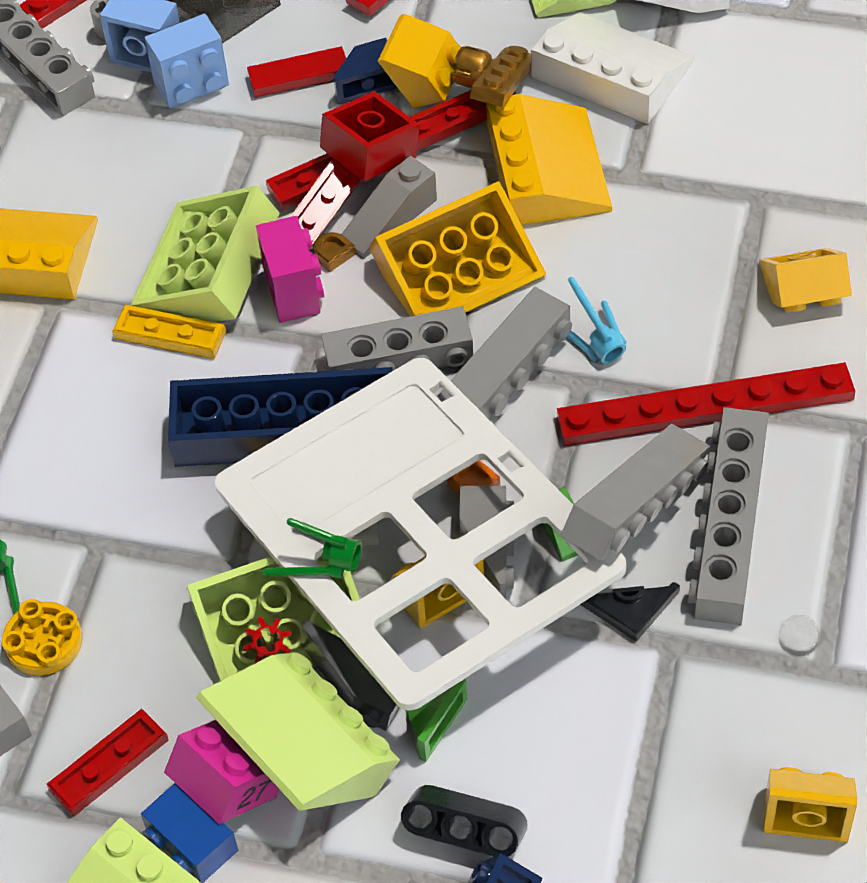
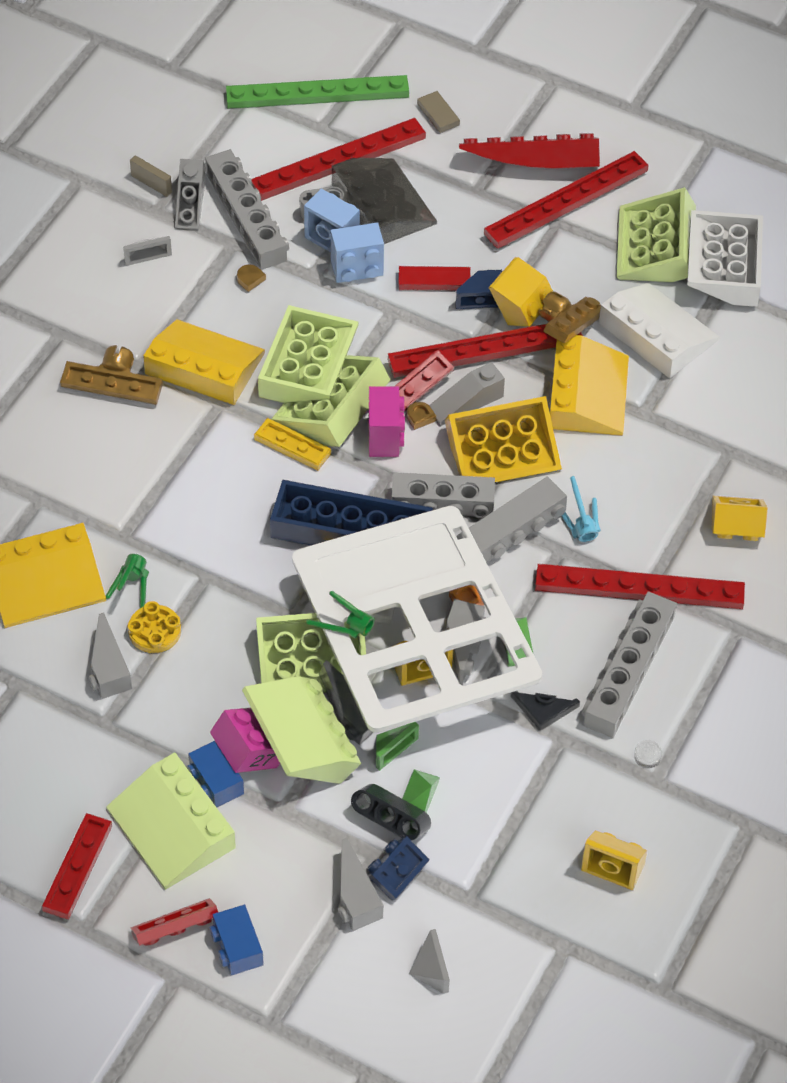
camera: 10 degrees right, 0 degrees up
(51, 127) = (250, 276): none -> pearl gold tile
(107, 762) = (176, 718): red tile -> none
(155, 210) = (305, 356): none -> yellowish green slope
(271, 631) = (303, 661): red gear -> none
(369, 135) = (466, 340): red brick -> none
(495, 774) = (421, 789): none -> bright green slope
(635, 492) = (566, 631): light grey brick -> none

